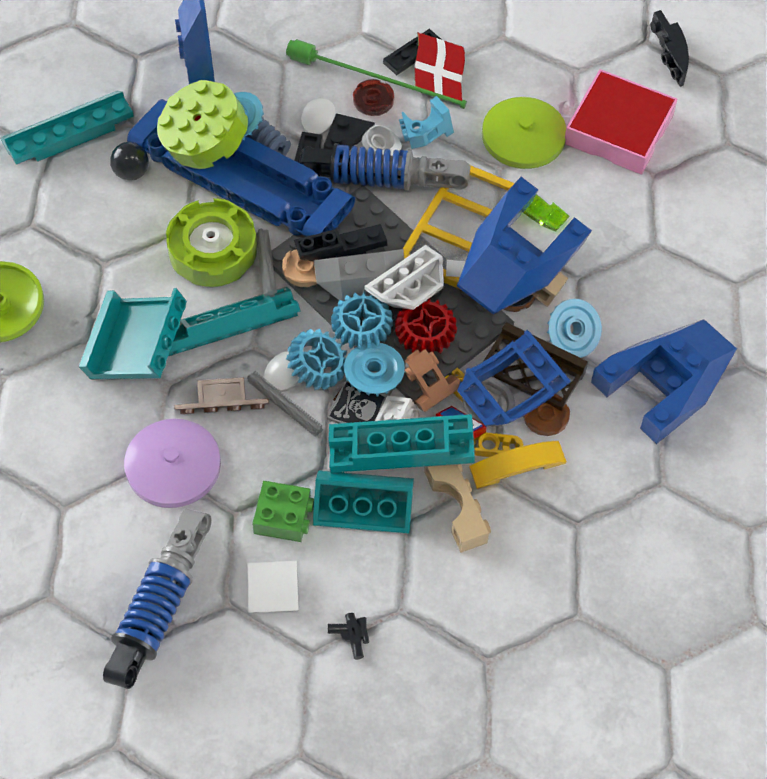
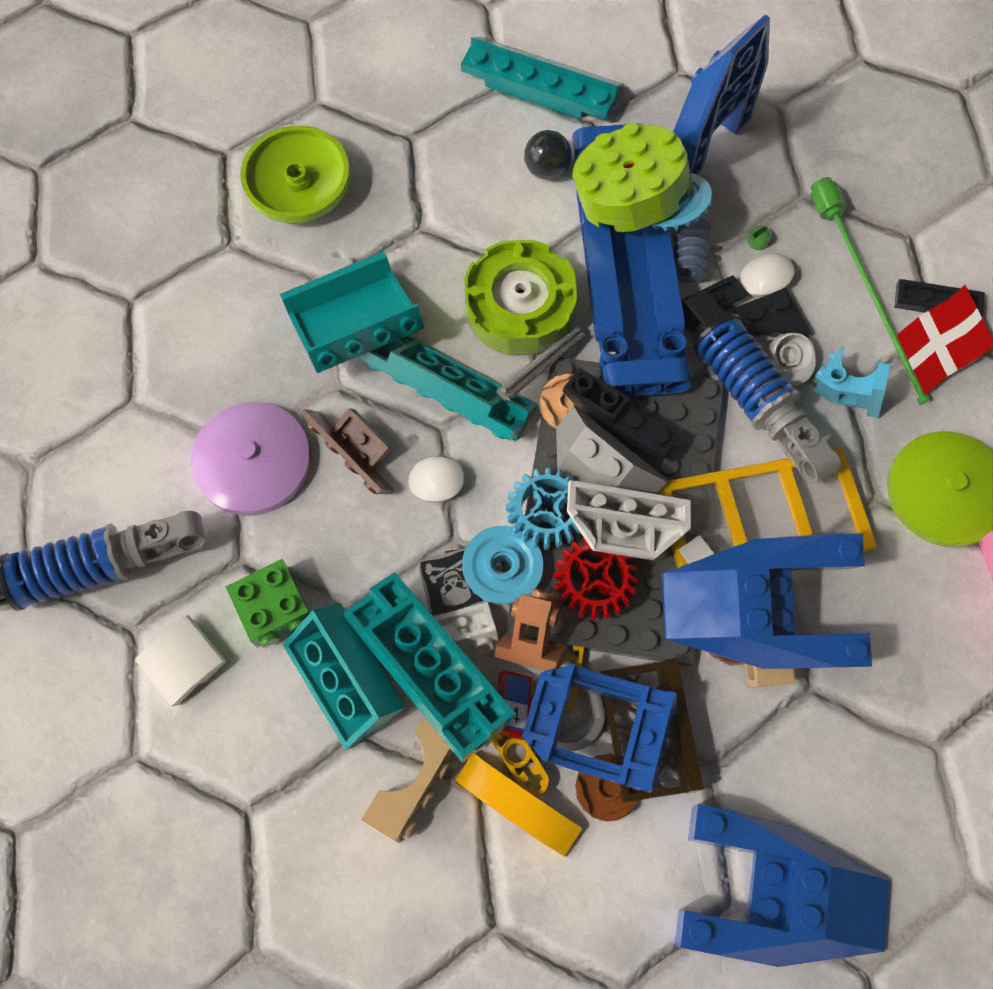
camera: 55 degrees right, 10 degrees up
(284, 403) = (398, 509): light grey axle -> none
(294, 103) = (762, 240): none -> bright green hinge
(310, 364) = (477, 490): medium azure gear -> none
(352, 631) = (187, 780): black piece -> none
(373, 97) = (843, 307): clear red tile -> none
(546, 215) = (864, 592): clear neon green slope -> none
(585, 324) = (741, 756): medium azure gear -> none

